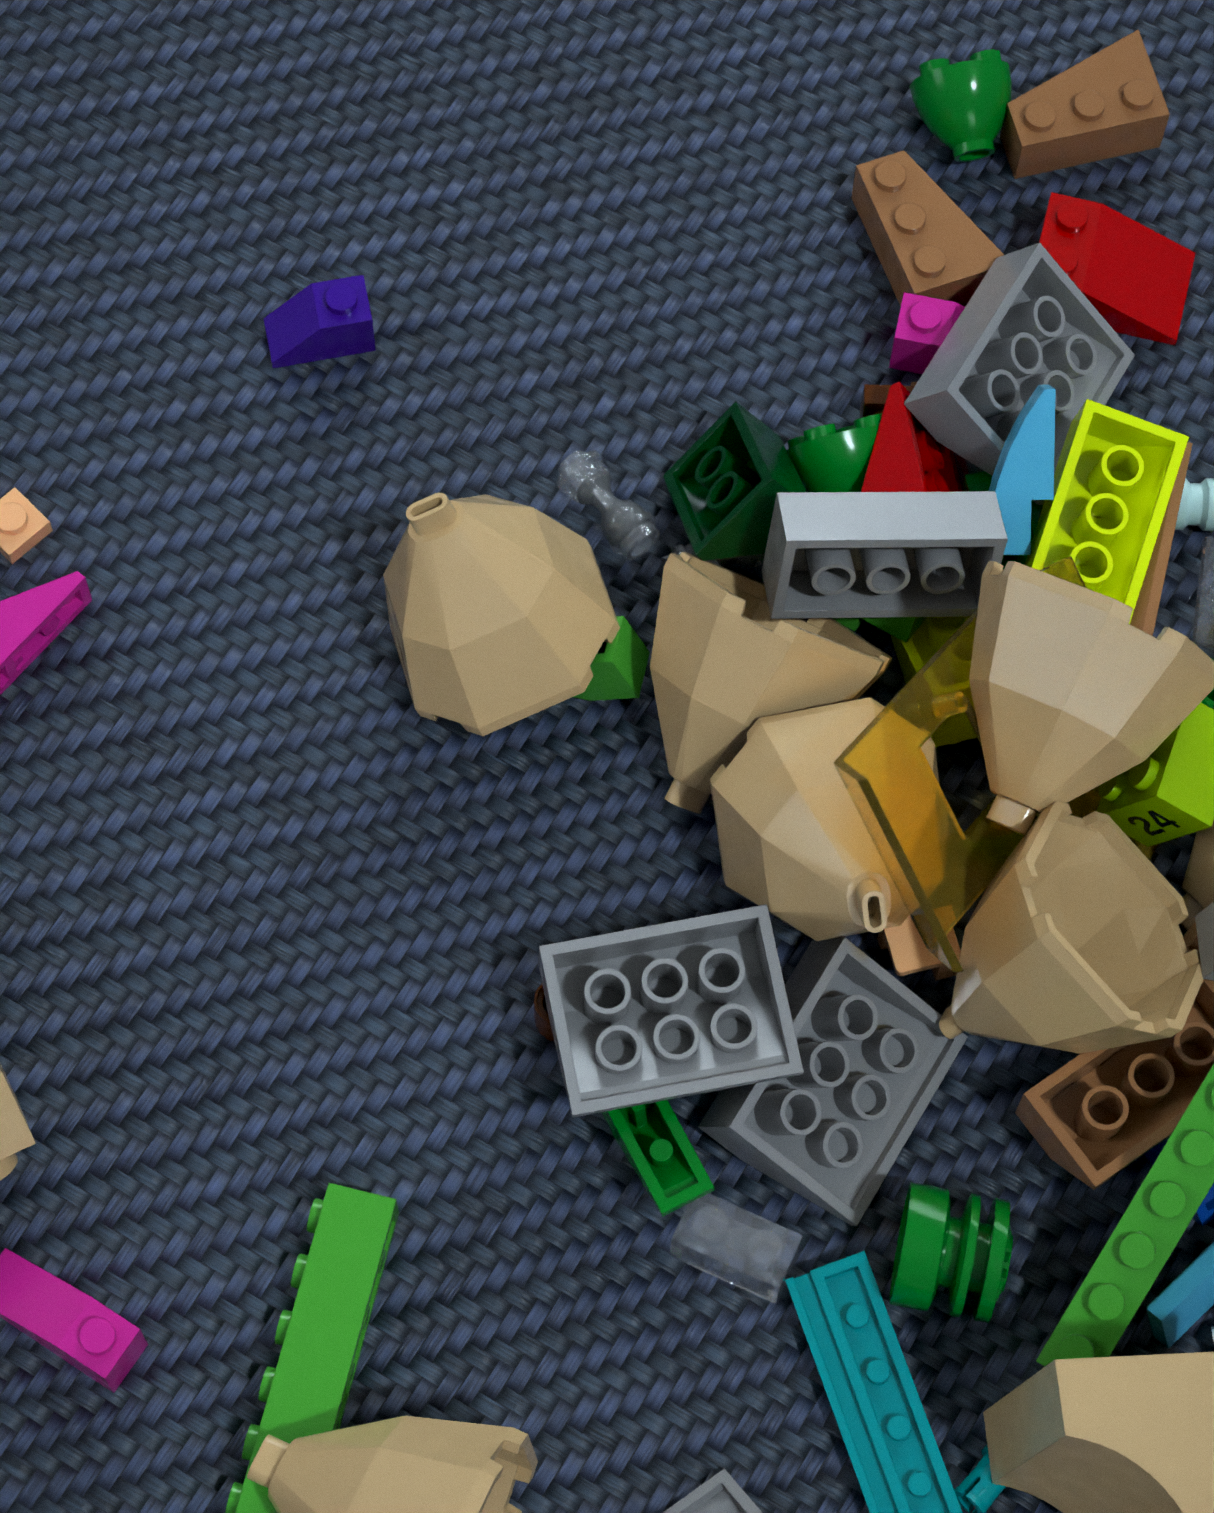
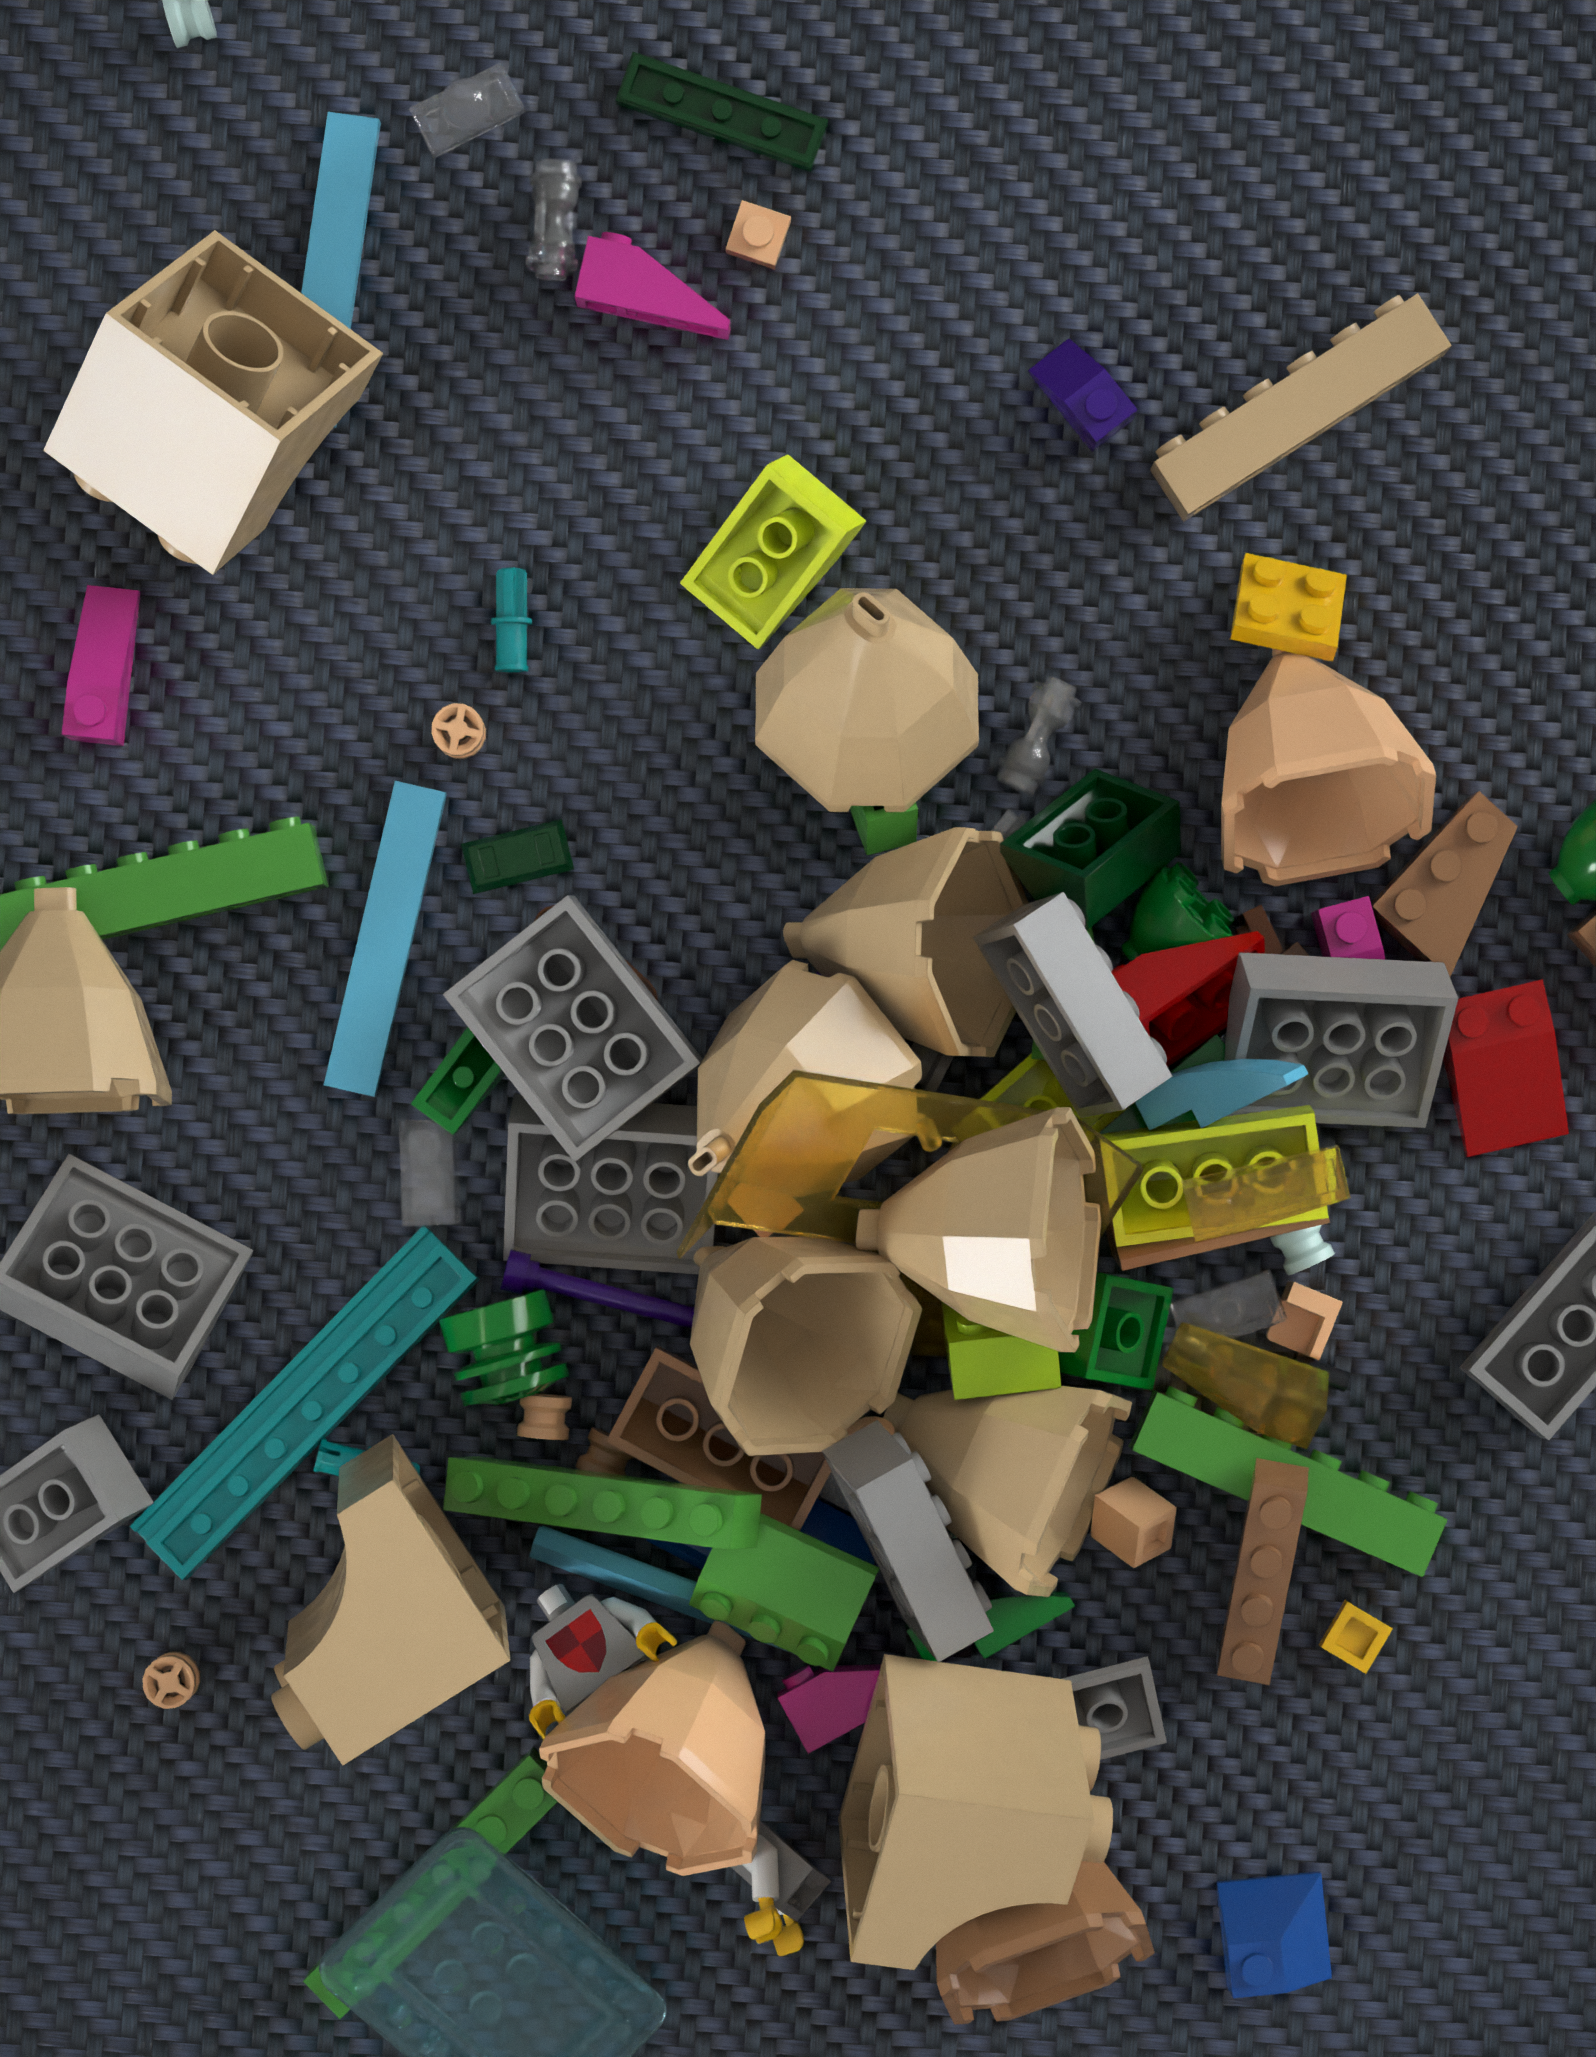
camera: 60 degrees right, 20 degrees up
(239, 909) = (511, 620): none -> teal axle
(310, 648) = (772, 550): none -> neon yellow slope
(317, 996) = (452, 720): none -> light nougat wheel
(435, 163) = (1300, 406): none -> tan brick
(467, 1019) = (517, 856): none -> dark green tile
(482, 1182) = (385, 939): none -> medium azure tile
(607, 245) = (1288, 607): none -> yellow plate
(773, 274) = (1319, 777): none -> light nougat piece
(881, 1207) = (525, 1274): none -> dark purple piece
(1035, 1256) = (544, 1417): none -> light nougat wheel
(1099, 1214) = (603, 1456): none -> medium nougat wheel
(1140, 476) = (1264, 1192): none -> clear yellow slope

